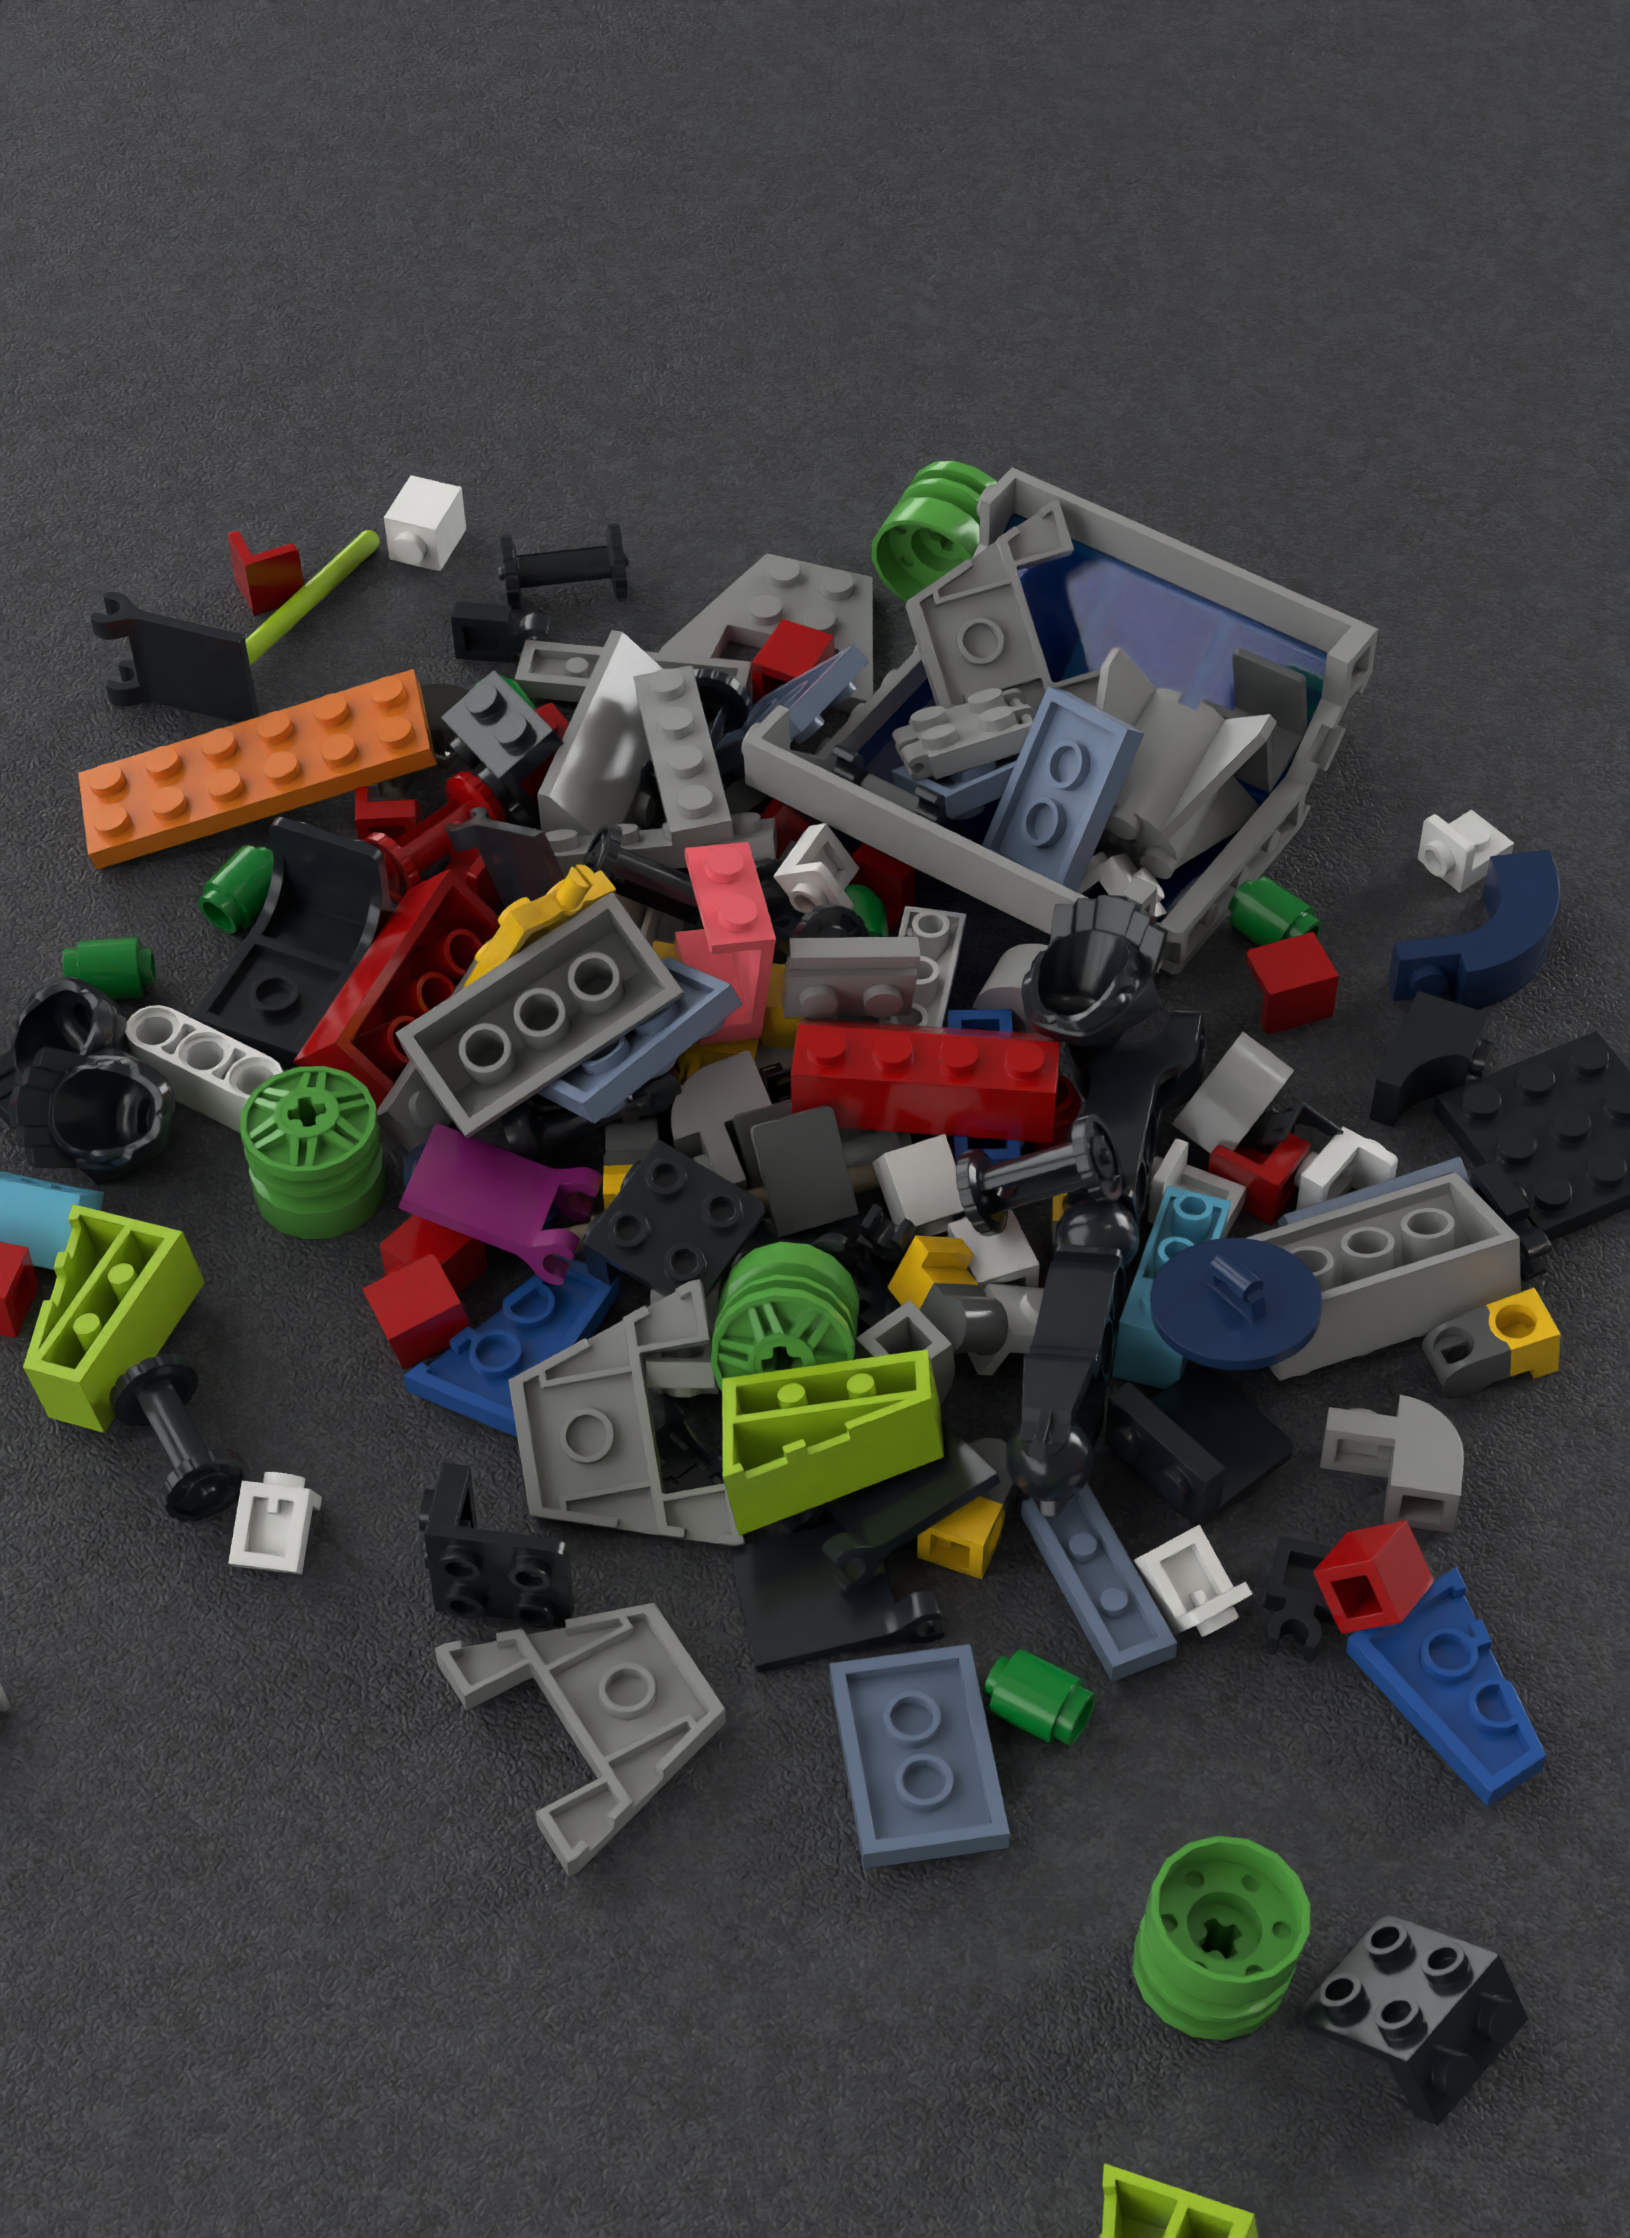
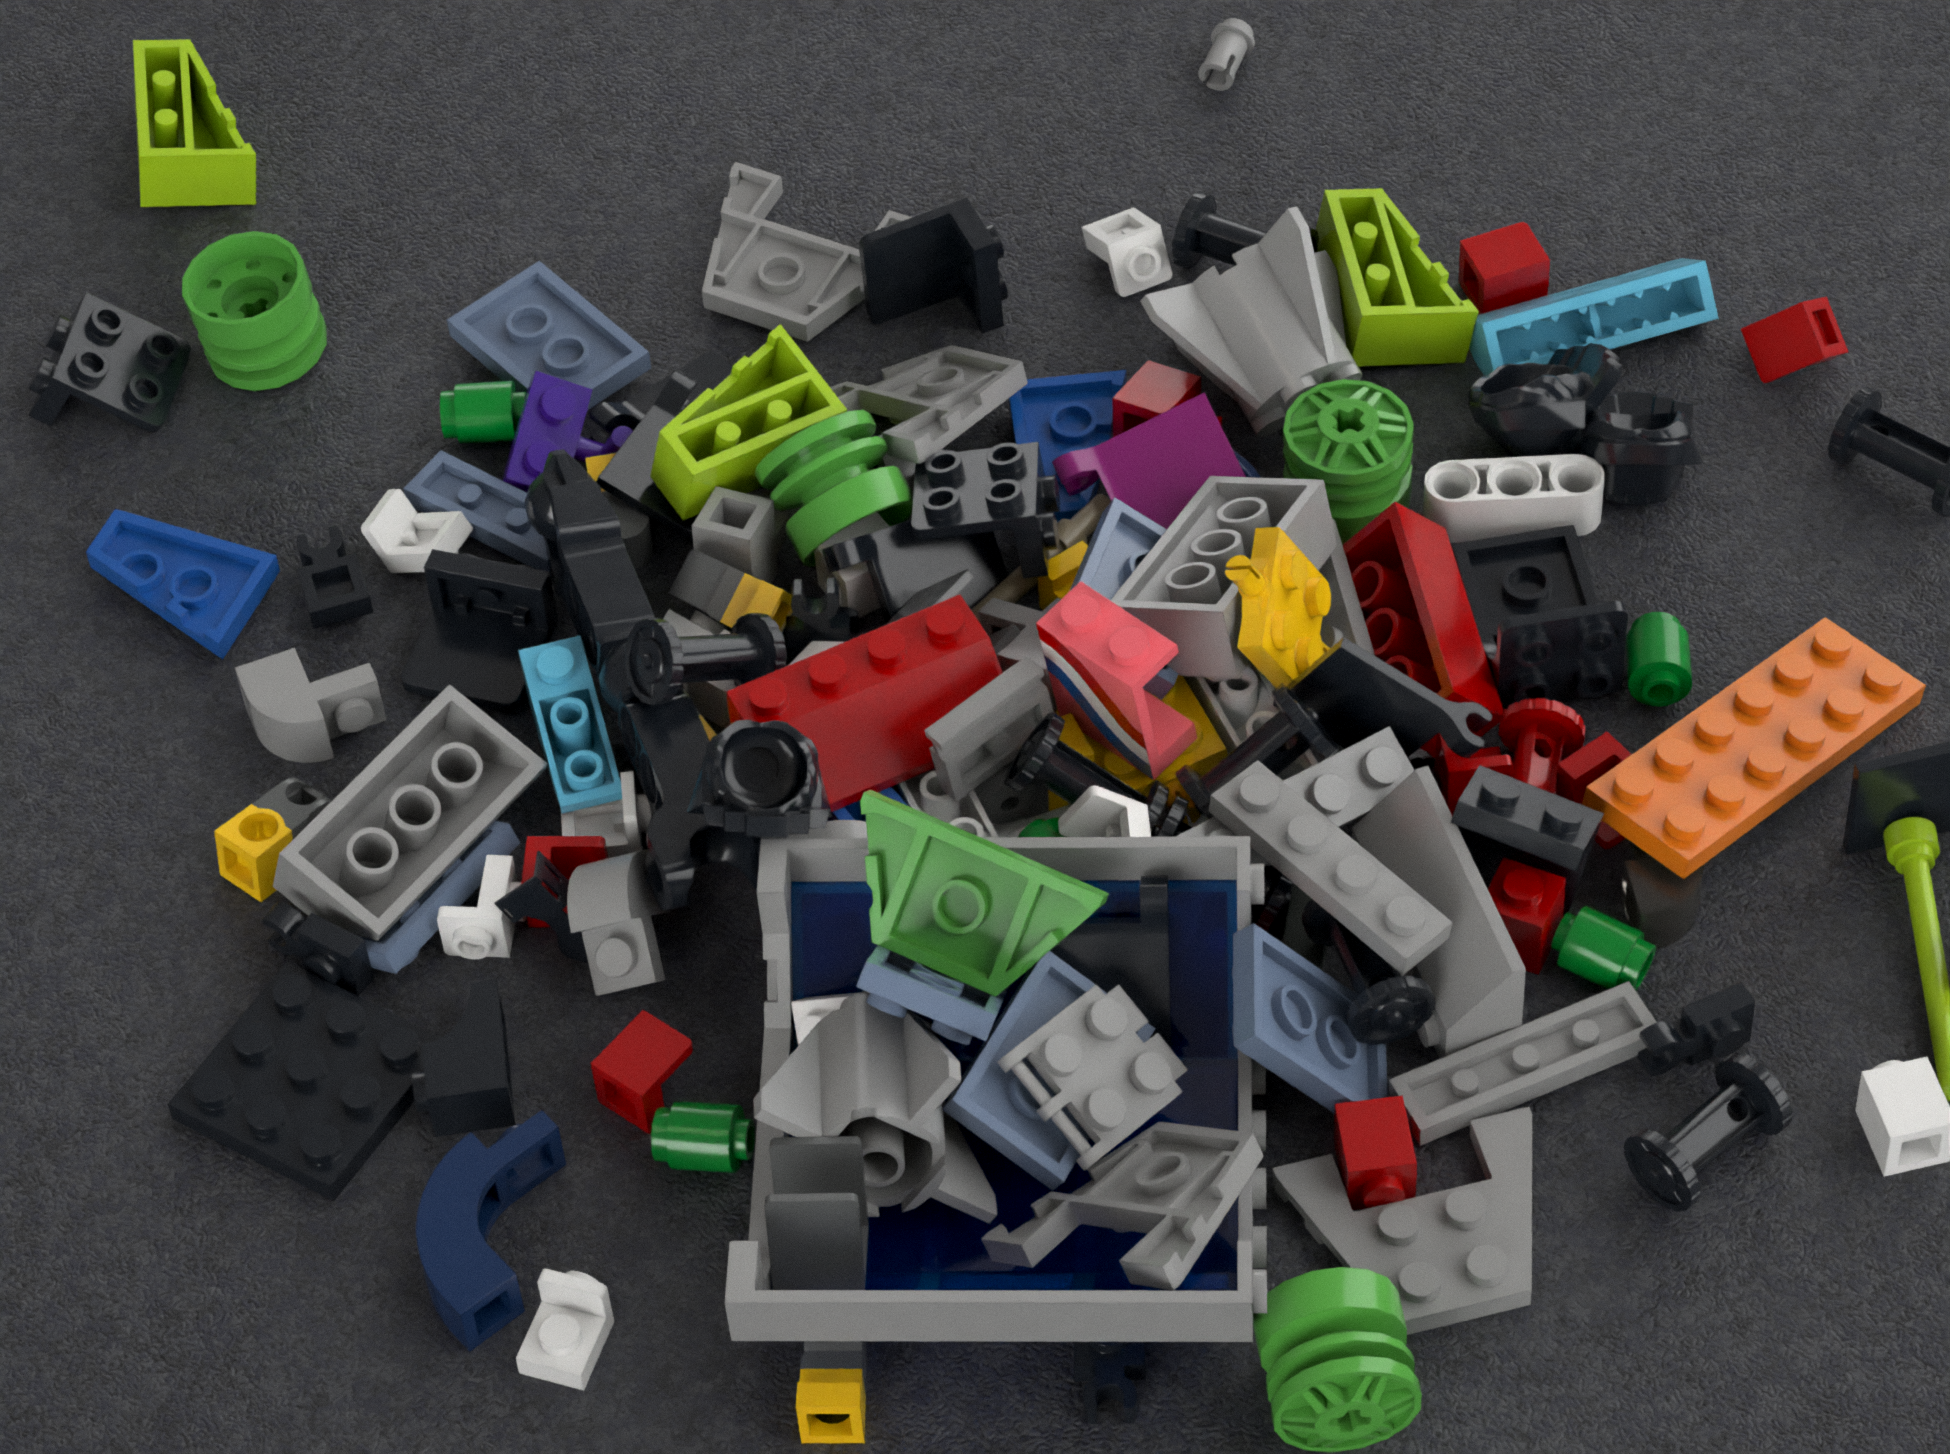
camera: 150 degrees right, 0 degrees up
(112, 965) = (1688, 531): green brick -> none
(270, 1280) = (1263, 324): none -> light grey brick
(993, 1617) = (551, 422): none -> dark purple plate
(995, 813) = (964, 899): none -> bright green wing
(1235, 1304) = (485, 670): dark blue shield -> none
(1373, 1577) = (274, 586): red brick -> none

